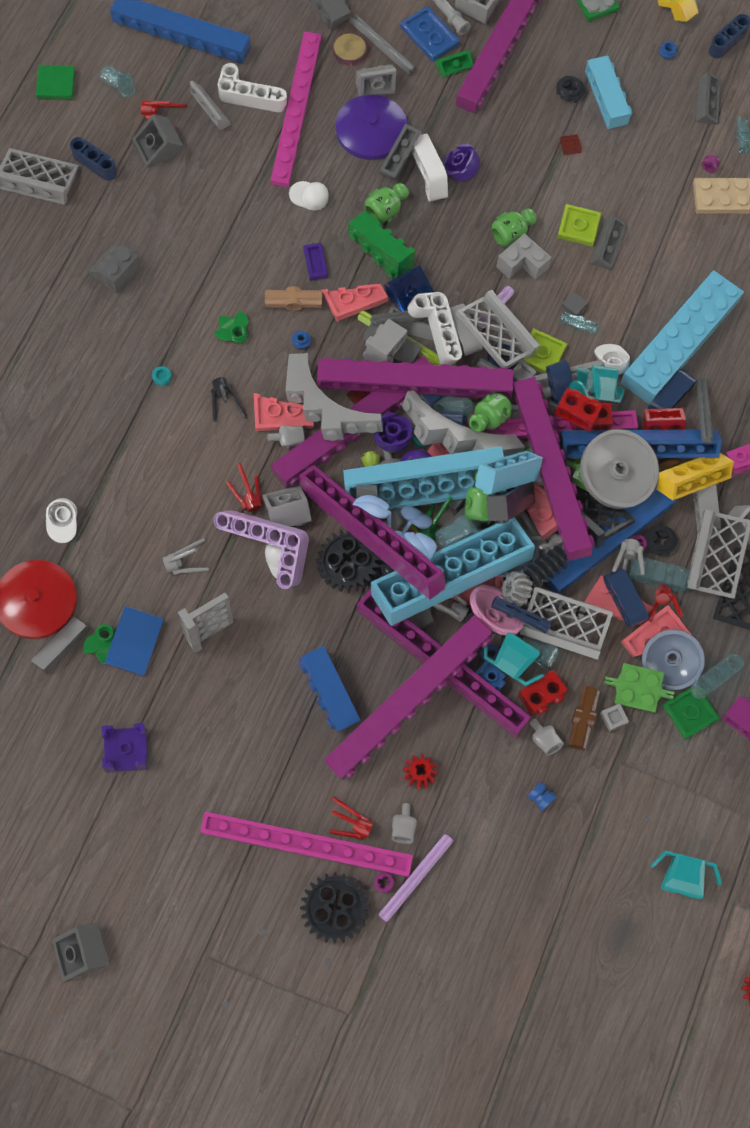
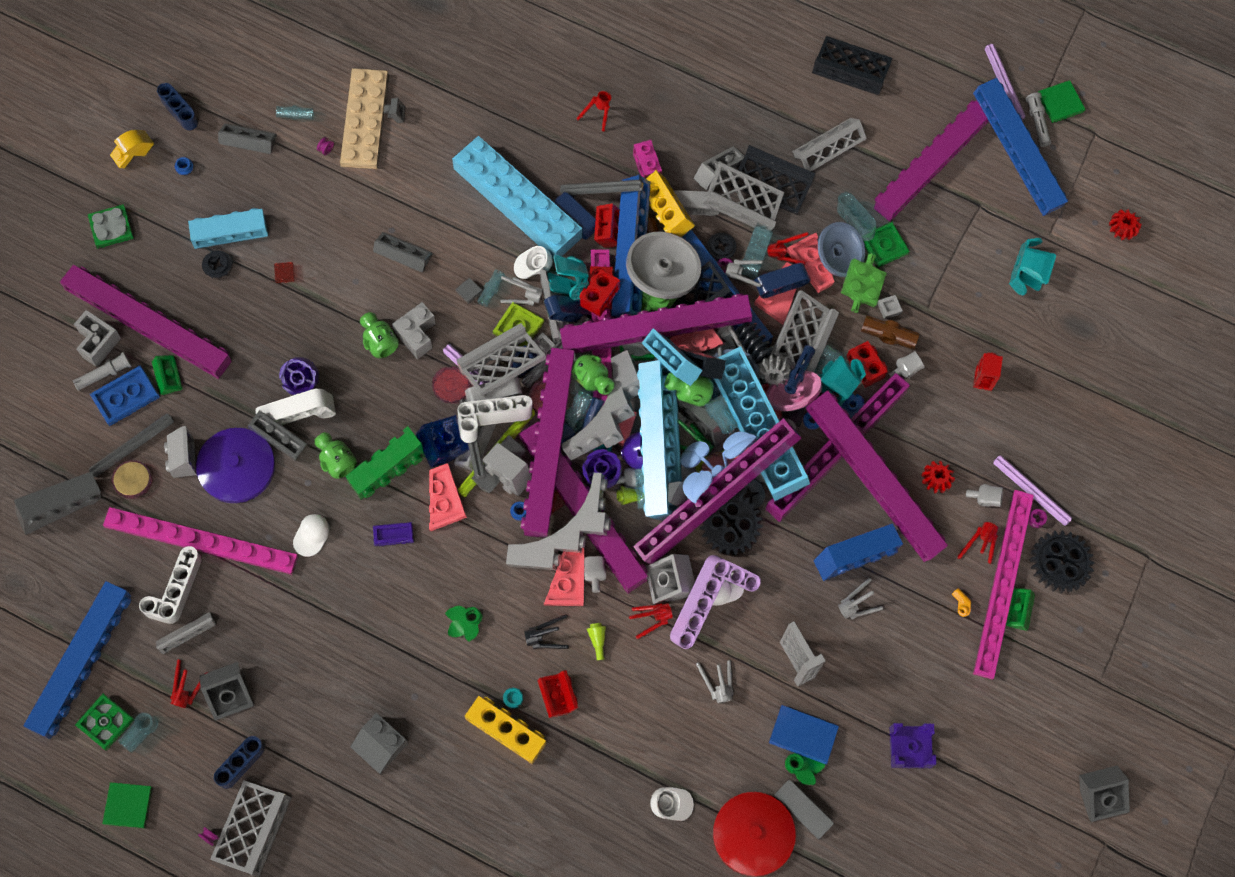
camera: 85 degrees left, 0 degrees up
(28, 143) = (208, 836): none -> magenta bush
(126, 55) = (104, 722): none -> green piece
(140, 344) = (528, 751): none -> yellow brick
(164, 411) = (558, 694): none -> red bracket
(224, 444) = (597, 636): none -> lime cone
(268, 683) = (849, 607): none -> light grey plant
(279, 864) = (1020, 609): none -> green slope
(281, 803) = (964, 603): none -> light orange arm
(293, 298) = (437, 558): medium nougat piece -> none
(301, 344) = (485, 559): blue plate -> none
(470, 291) = (450, 385): none -> clear pink tile
(541, 796) = (961, 376): blue wheel -> none
(547, 821) = (988, 371): none -> red brick
(579, 225) = (379, 276): lime tile -> none
(579, 357) = (532, 293): none -> light grey plant

